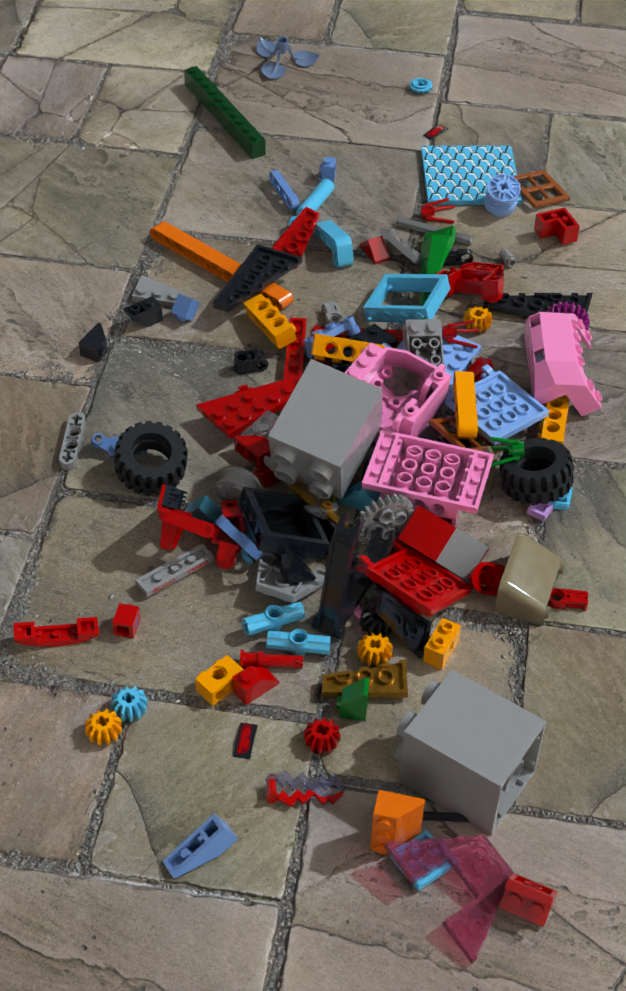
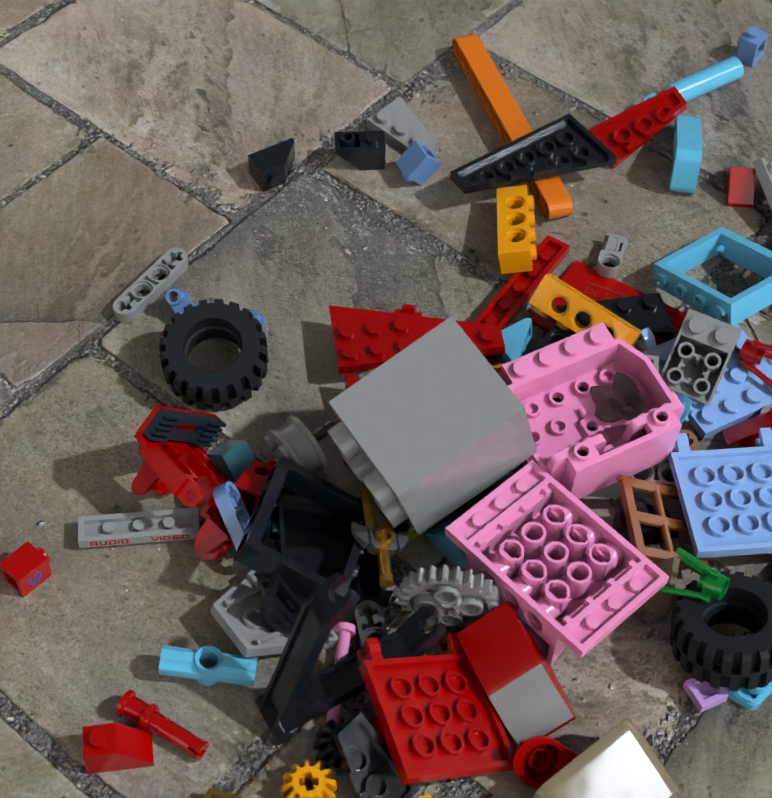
camera: 30 degrees right, 5 degrees up
(217, 680) = (54, 714): light orange brick -> none
(249, 360) = (447, 274): black piece -> none
(284, 190) = (670, 52): medium blue beam -> none
(298, 642) = (229, 731): medium azure piece -> none
(332, 330) = (595, 277): medium blue plate -> none
(465, 404) = (686, 477): light orange beam -> none

